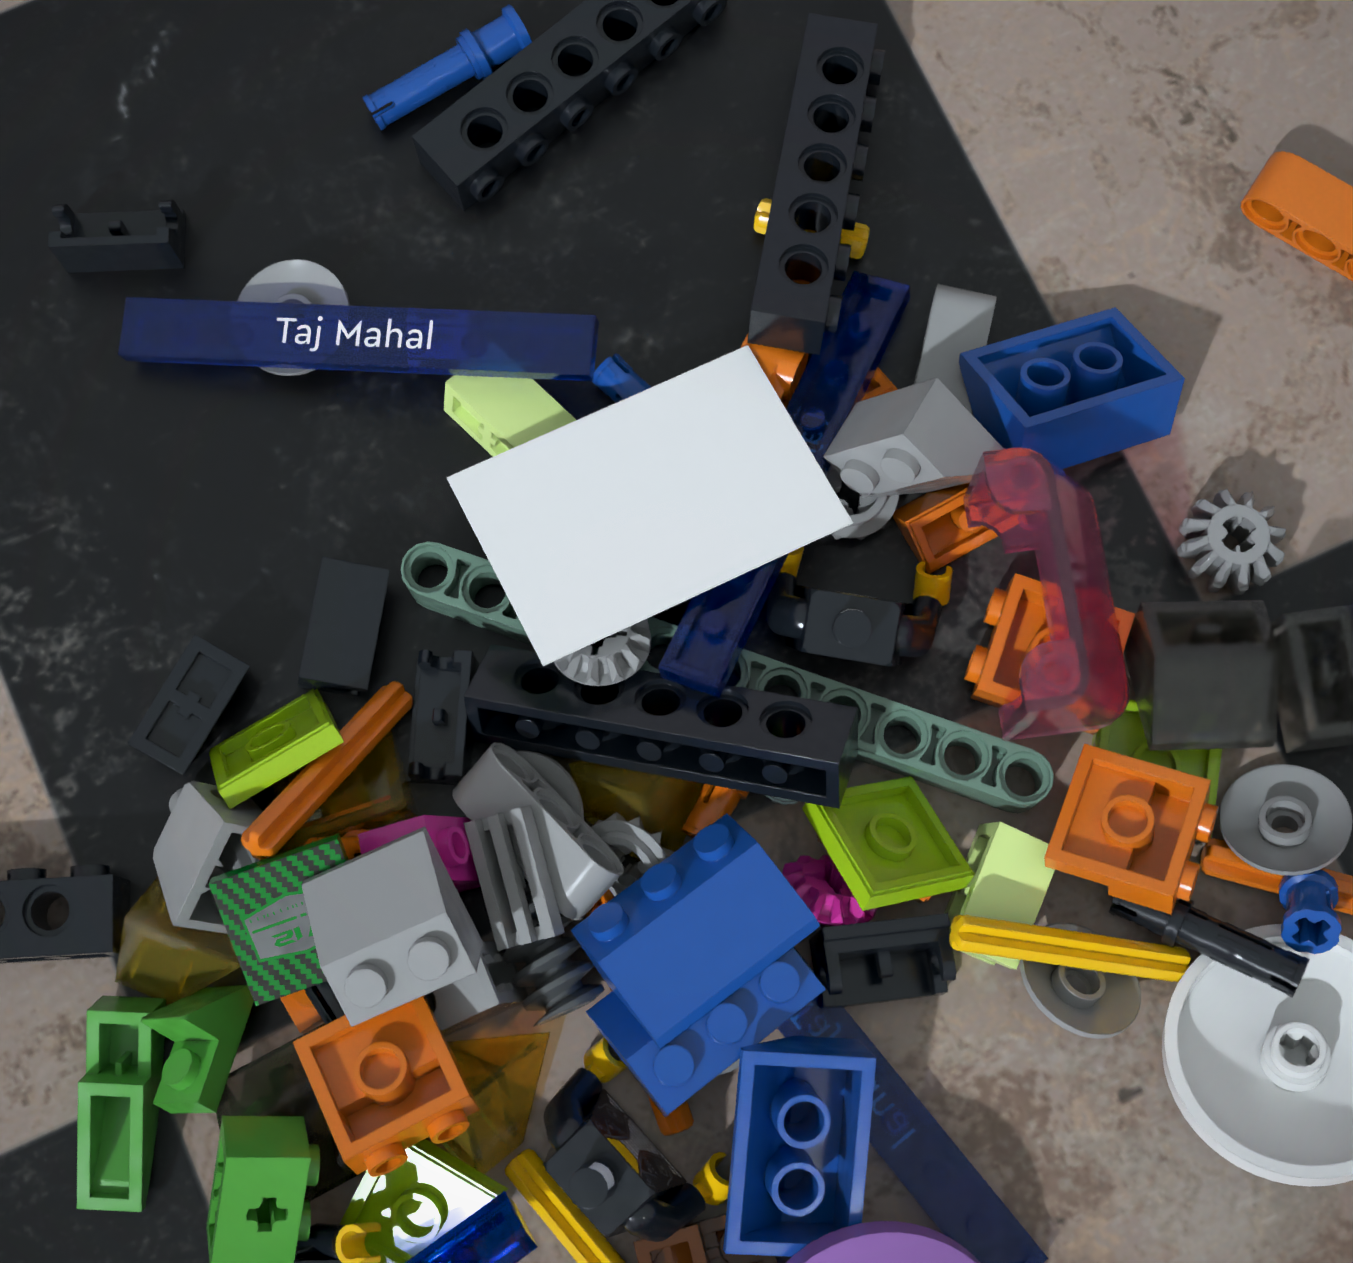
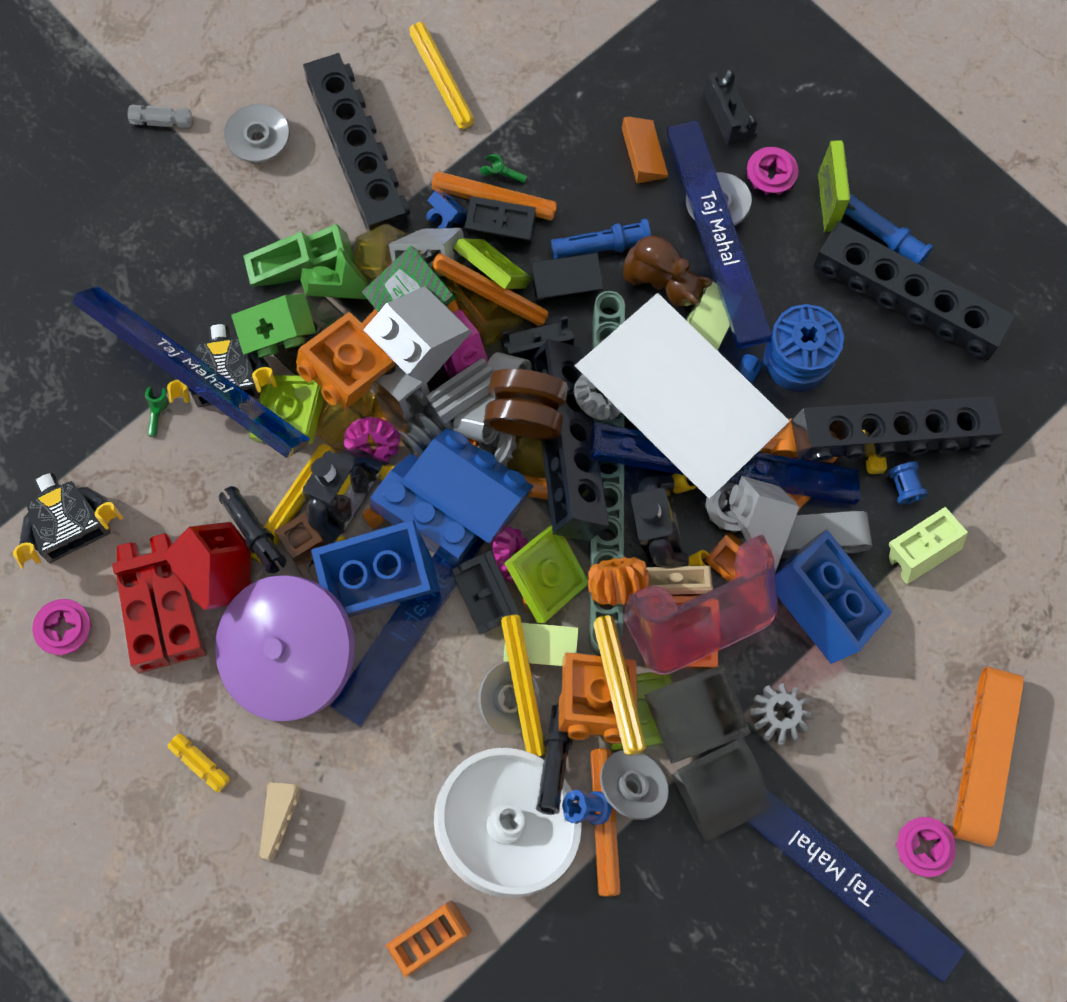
camera: 65 degrees right, 5 degrees down
(78, 674) = (499, 167): none -> green hand
(126, 705) = (466, 188): none -> orange axle
(127, 792) = (448, 208): none -> blue tile
(141, 410) = (644, 149): none -> orange slope
(265, 186) = (785, 167): none -> dark pink gear
(296, 516) = (616, 238): none -> blue pin
(344, 117) = (833, 185): none -> lime tile
(387, 454) = (659, 263): none -> reddish brown animal
(534, 1051) = (381, 431): none -> dark pink gear
(596, 775) = (525, 403): none -> reddish brown wheel
(633, 304) = (800, 364): none -> blue wheel
(904, 202) = (908, 483): none -> blue bush
(957, 724) = (617, 579): none -> orange gear
(964, 631) = (682, 579): none -> tan slope
(1019, 210) = (927, 544): none -> yellowish green hinge
(1134, 785) = (619, 686): none -> yellow axle

